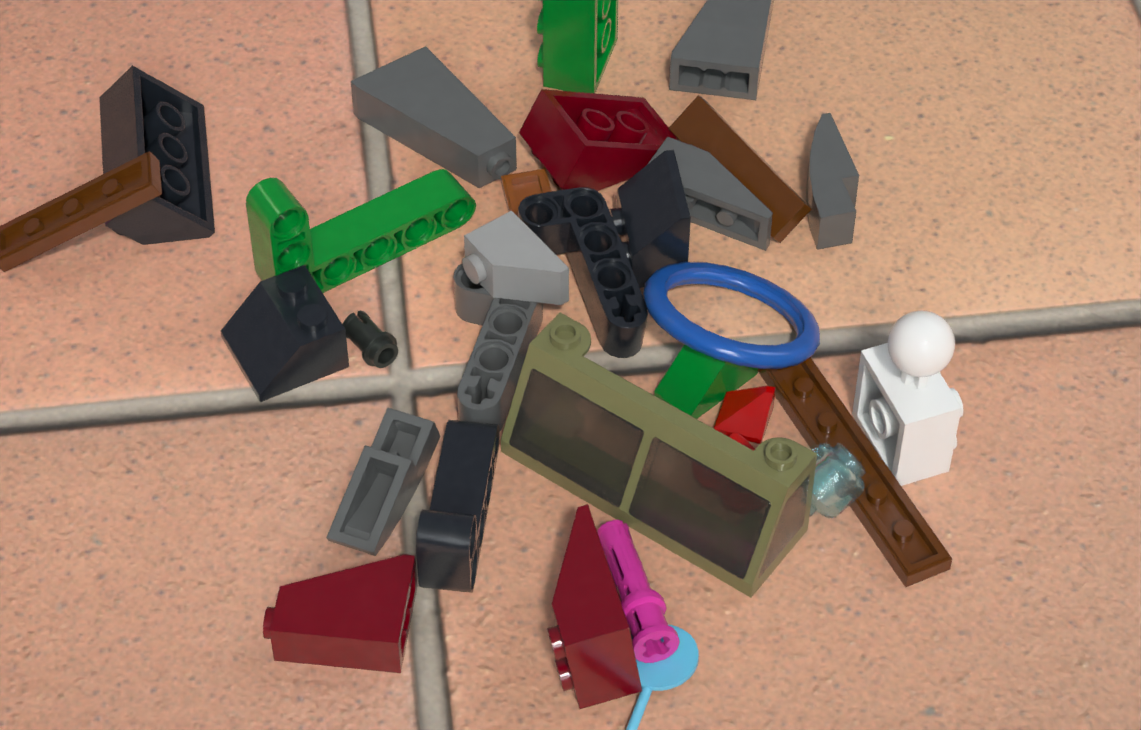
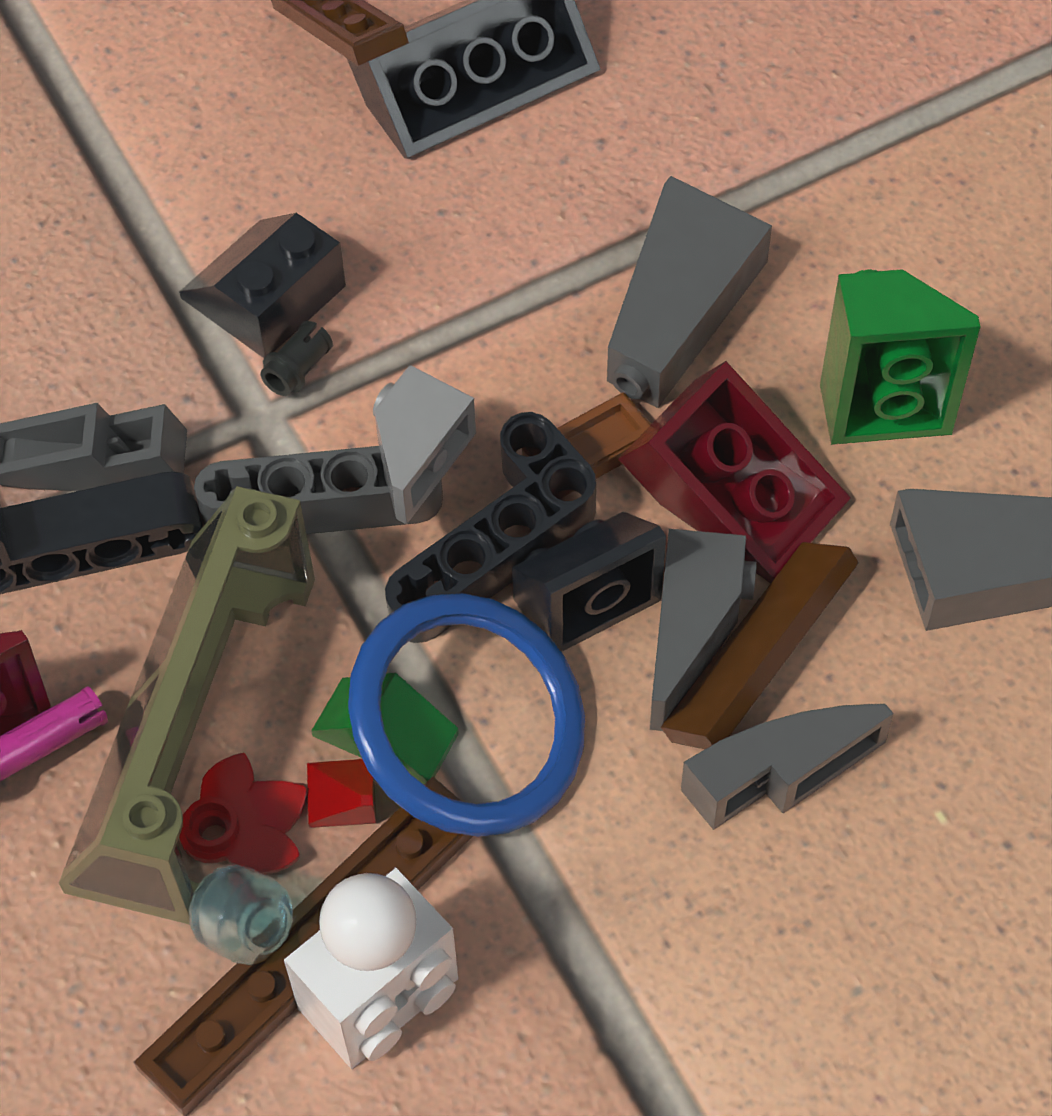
camera: 70 degrees right, 10 degrees up
(357, 238) = (426, 279): green beam -> none

